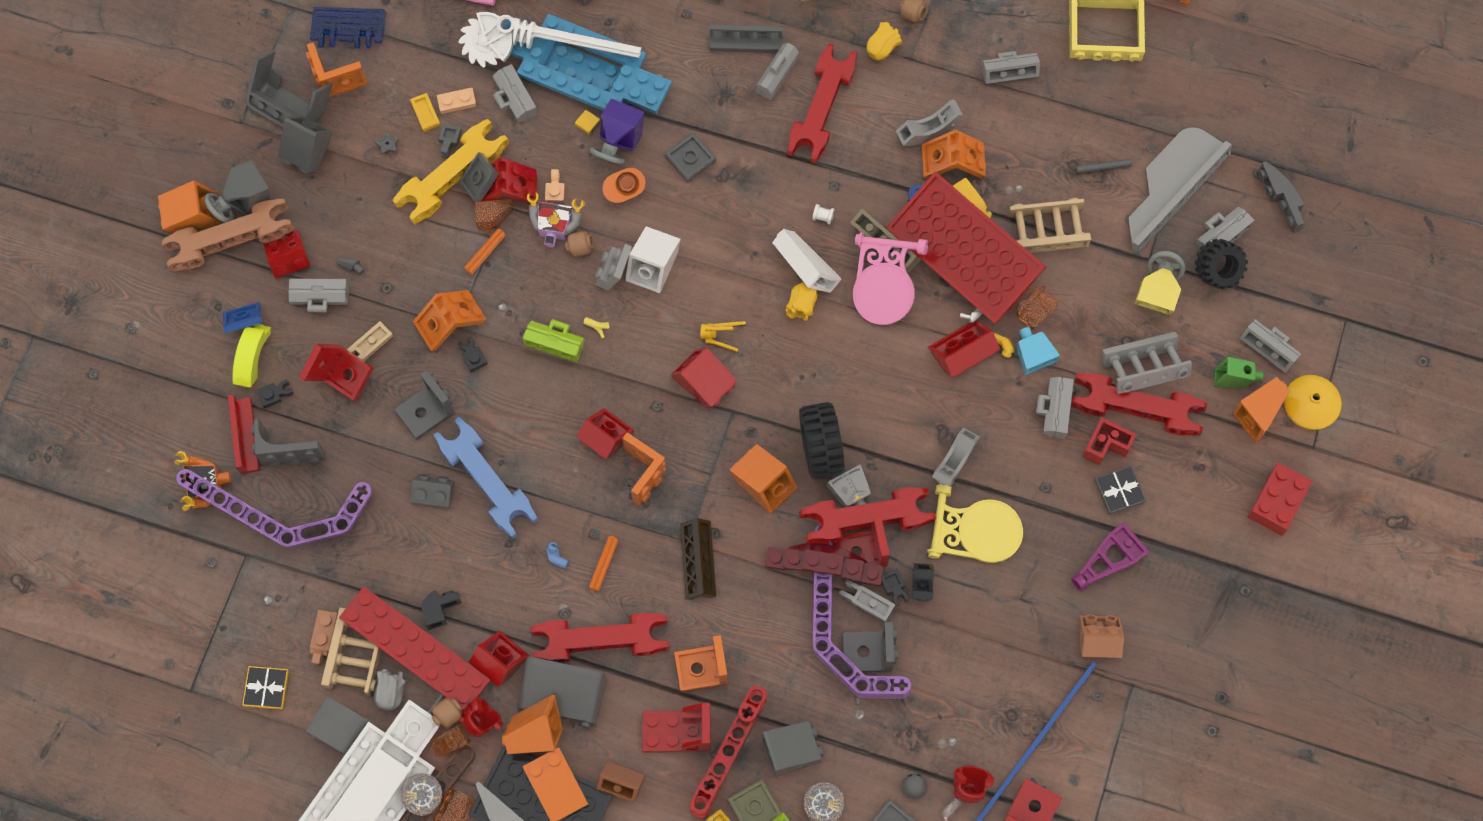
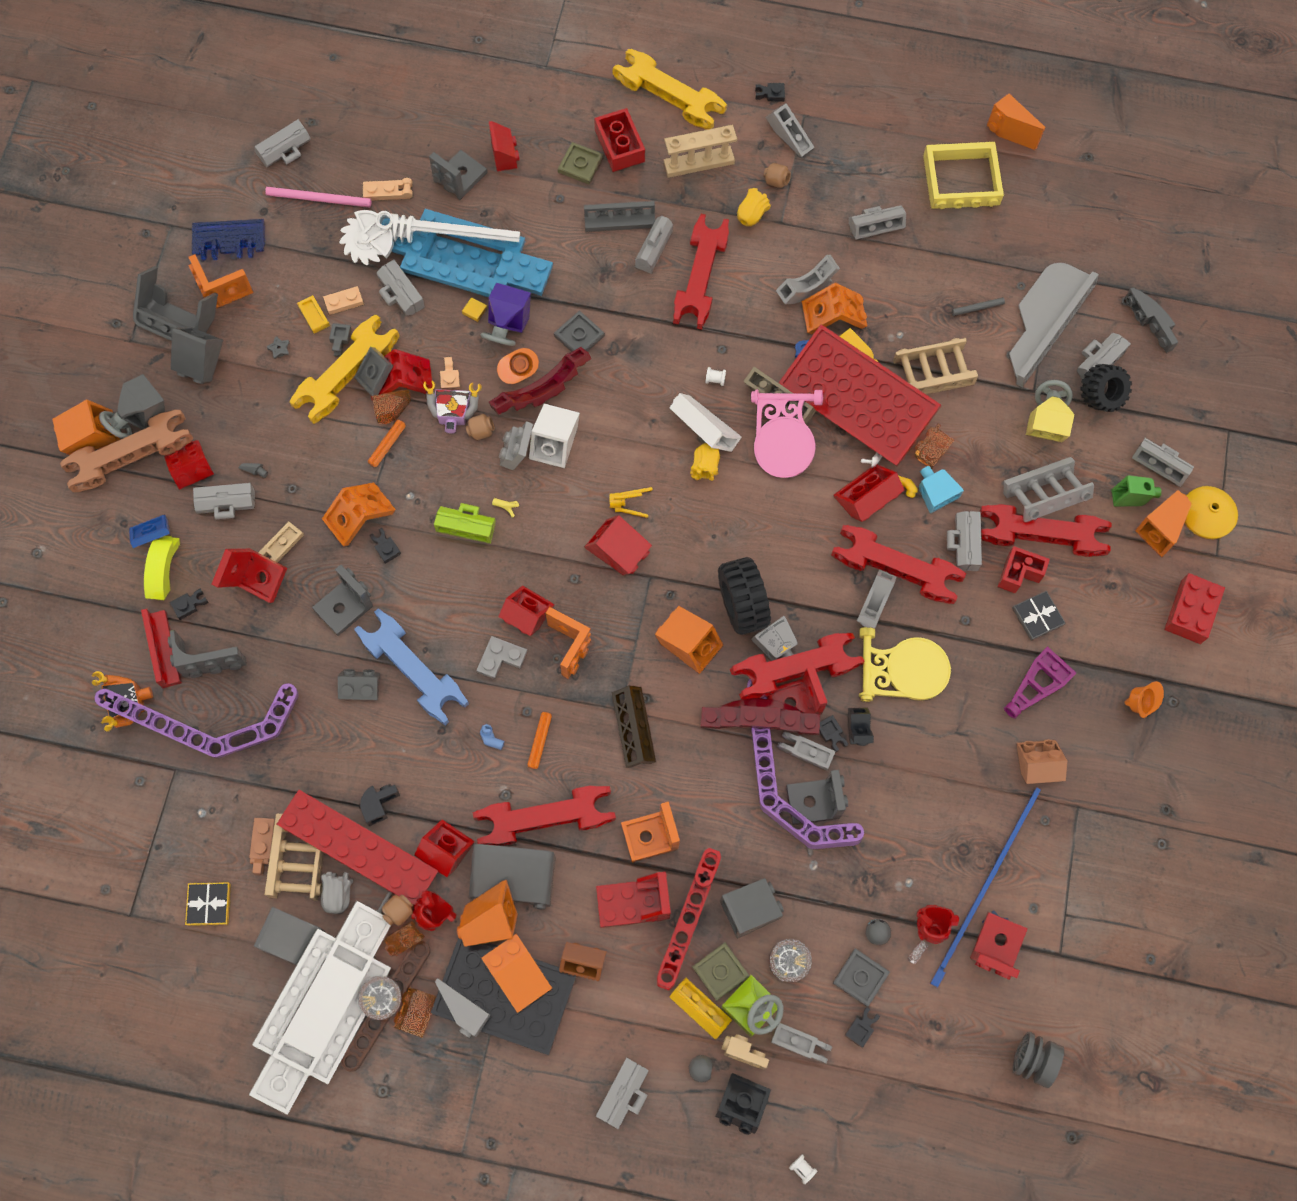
camera: 10 degrees left, 0 degrees up
(574, 472) = (498, 652): none -> light grey plate
(647, 210) = (545, 387): none -> dark red piece
(956, 409) = (868, 552): none -> piece
(1216, 585) = (1146, 699): none -> orange piece

